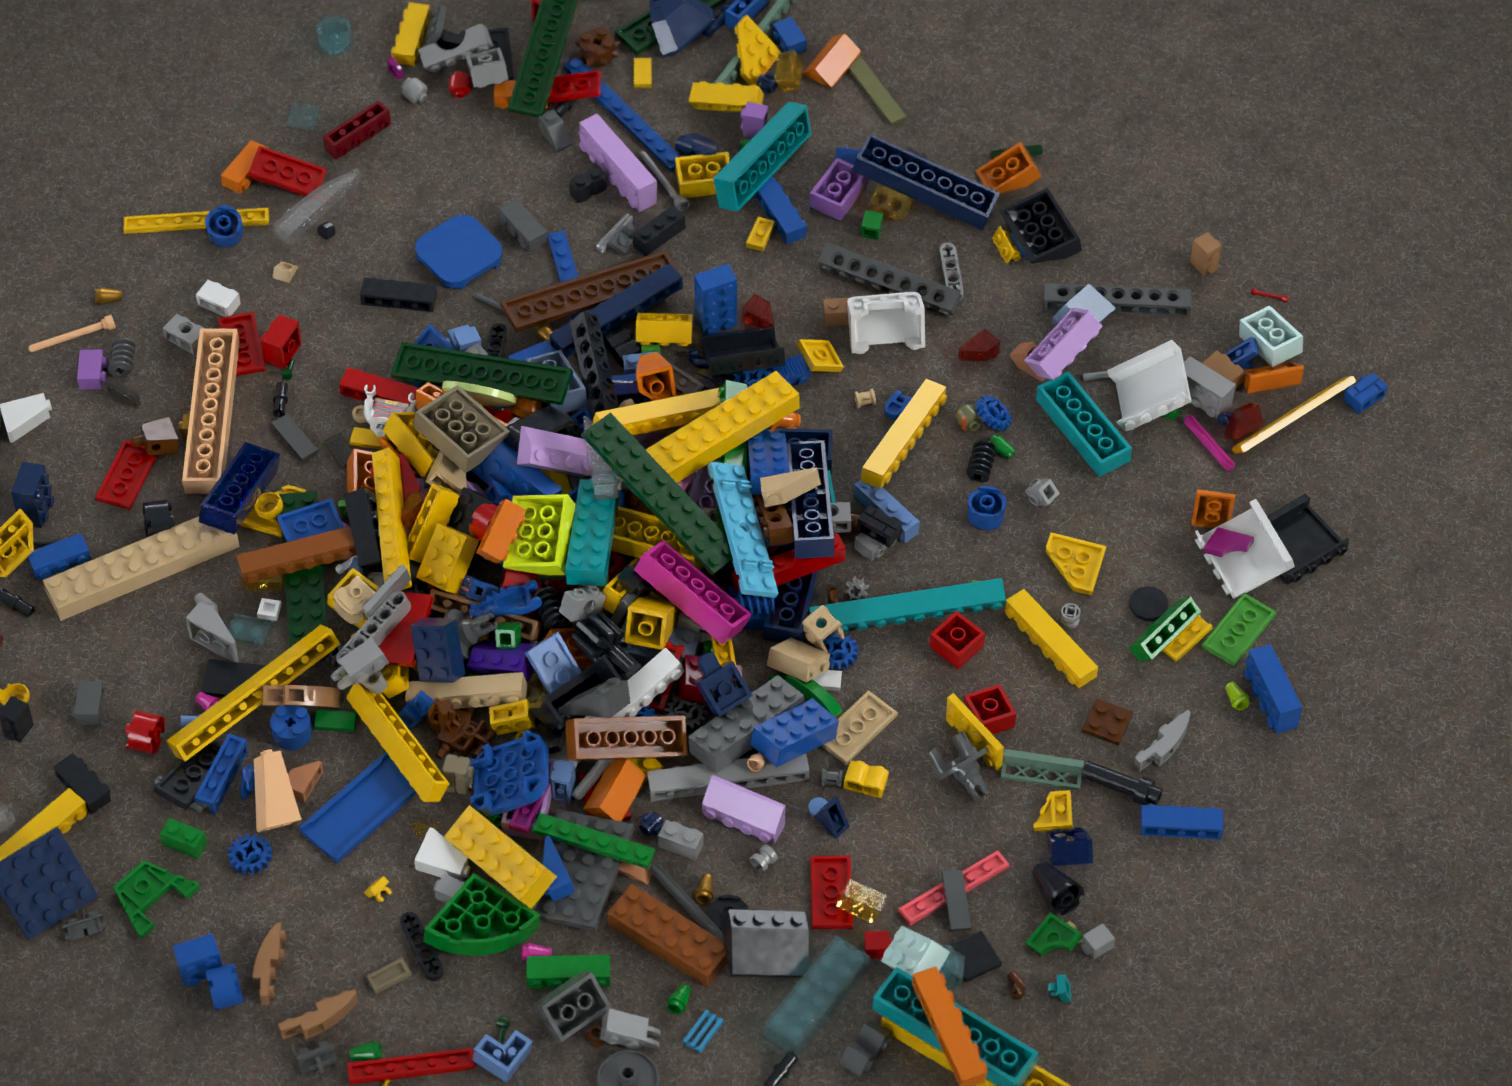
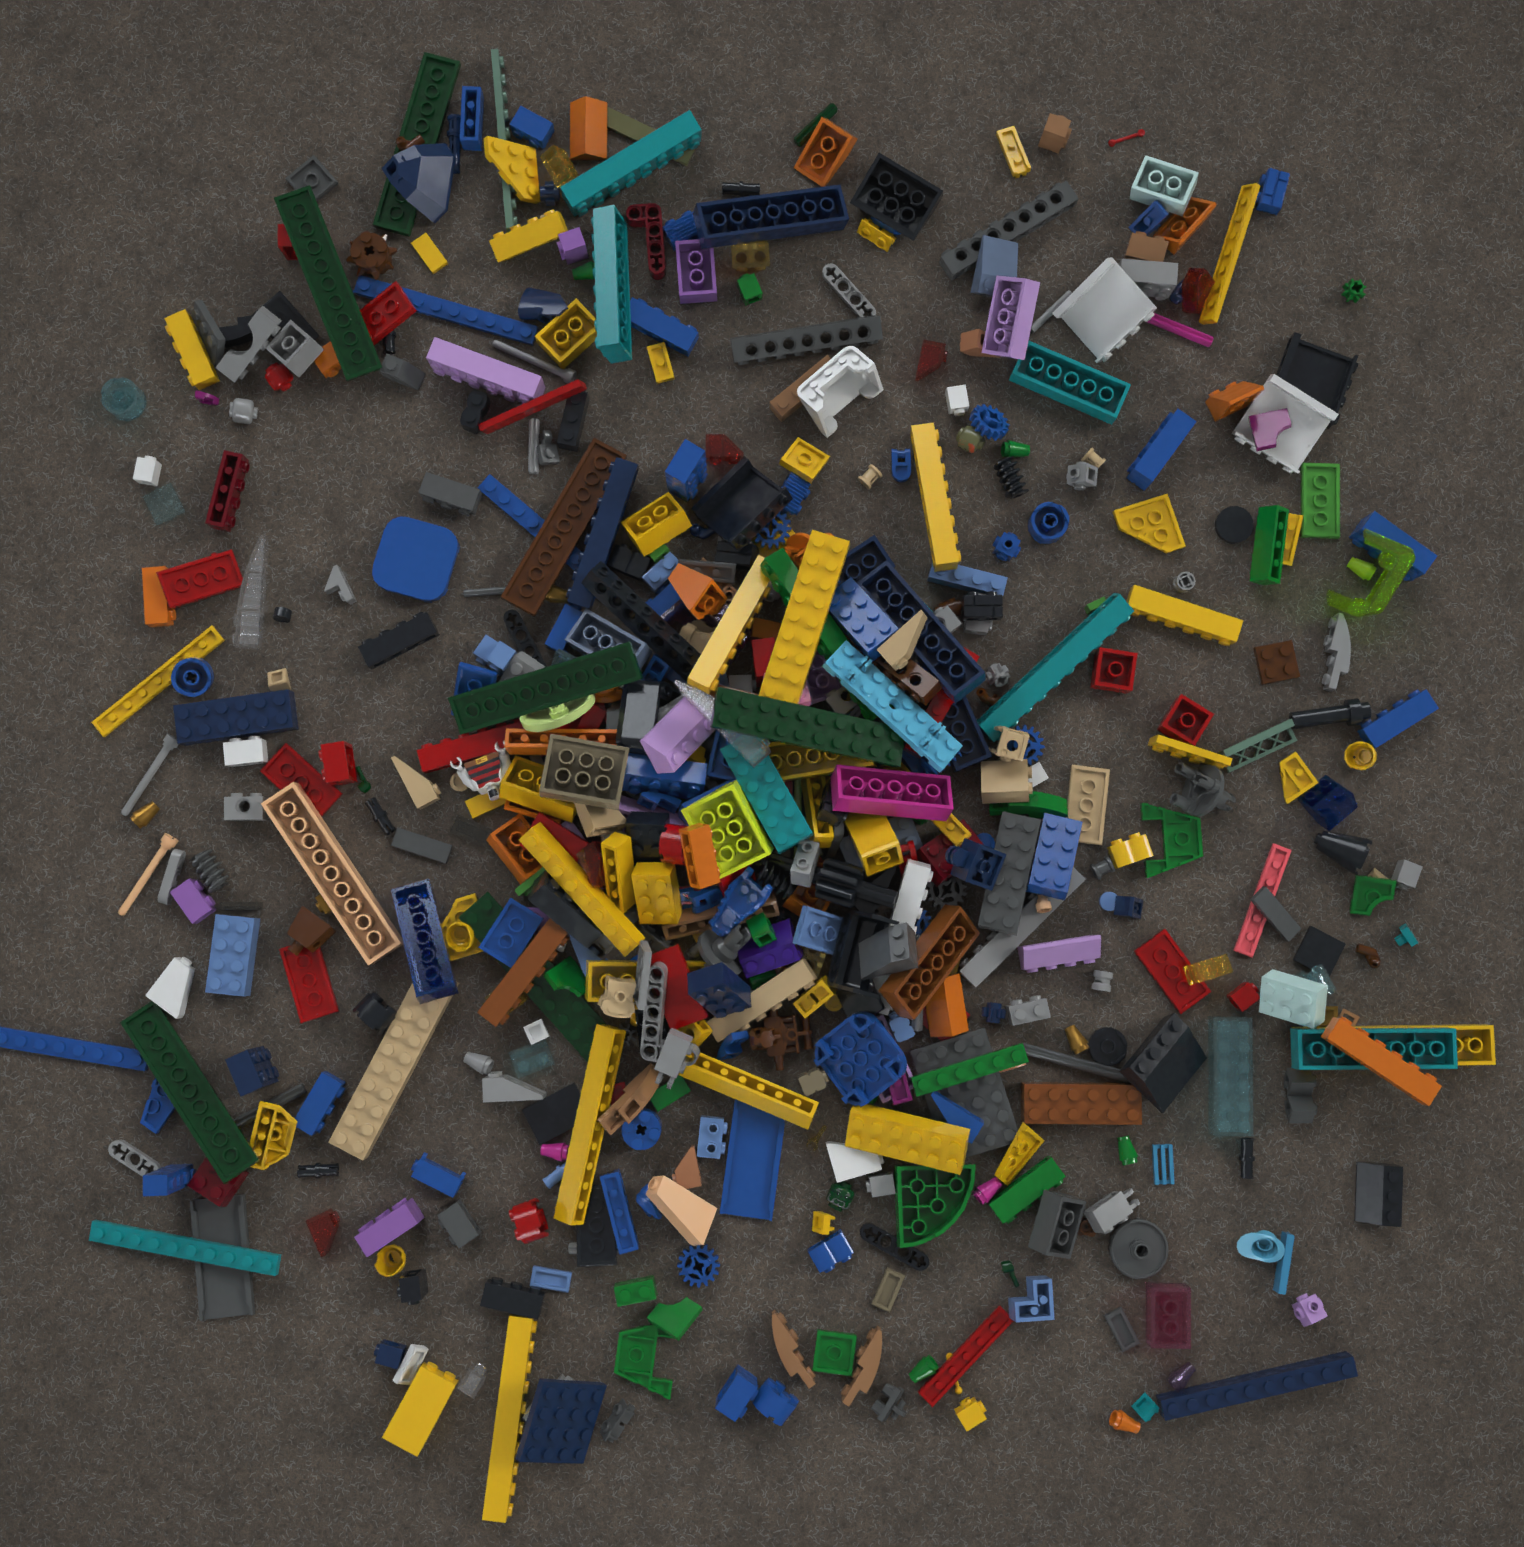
camera: 40 degrees left, 30 degrees up
(35, 667) = (388, 1226): none -> medium lavender brick
(87, 420) = (232, 955): none -> medium blue brick
(98, 340) = (172, 871): none -> light grey beam
(102, 662) = (437, 1176): none -> blue brick
(124, 792) = (550, 1279): none -> medium blue tile
(168, 262) = (169, 744): none -> light grey piece
(198, 878) = (675, 1318): none -> green tile
(247, 276) = (235, 717): none -> dark blue brick
(303, 990) = (834, 1352): none -> green plate
(310, 88) = (147, 471): none -> white brick
(323, 582) = (567, 976): none -> green tile
(327, 397) = (419, 787): none -> tan slope
(341, 769) = (710, 1137): none -> medium blue brick
(365, 913) = (831, 1251): none -> blue brick
(386, 234) = (338, 581): none -> light grey slope
(408, 878) = (840, 1196): none -> dark green head
(586, 938) = (1018, 1154): none -> yellow wing
(635, 201) = (532, 406): none -> red tile
(829, 138) = (653, 241): none -> dark red beam
(847, 94) = (631, 164): none -> teal brick
(916, 799) = (1180, 838): none -> green wing
(938, 505) = (1006, 553): none -> blue brick
(980, 385) = (957, 400): none -> white brick
(1063, 489) = (1093, 459): none -> tan bush
(1122, 509) = (1159, 448): none -> blue brick
(1125, 822) = (1364, 754): none -> yellow hair
(1164, 253) = (1013, 151): none -> yellow hinge
(1244, 701) = (1395, 560): none -> clear neon green windscreen
(1384, 497) = (1353, 290): none -> green gear

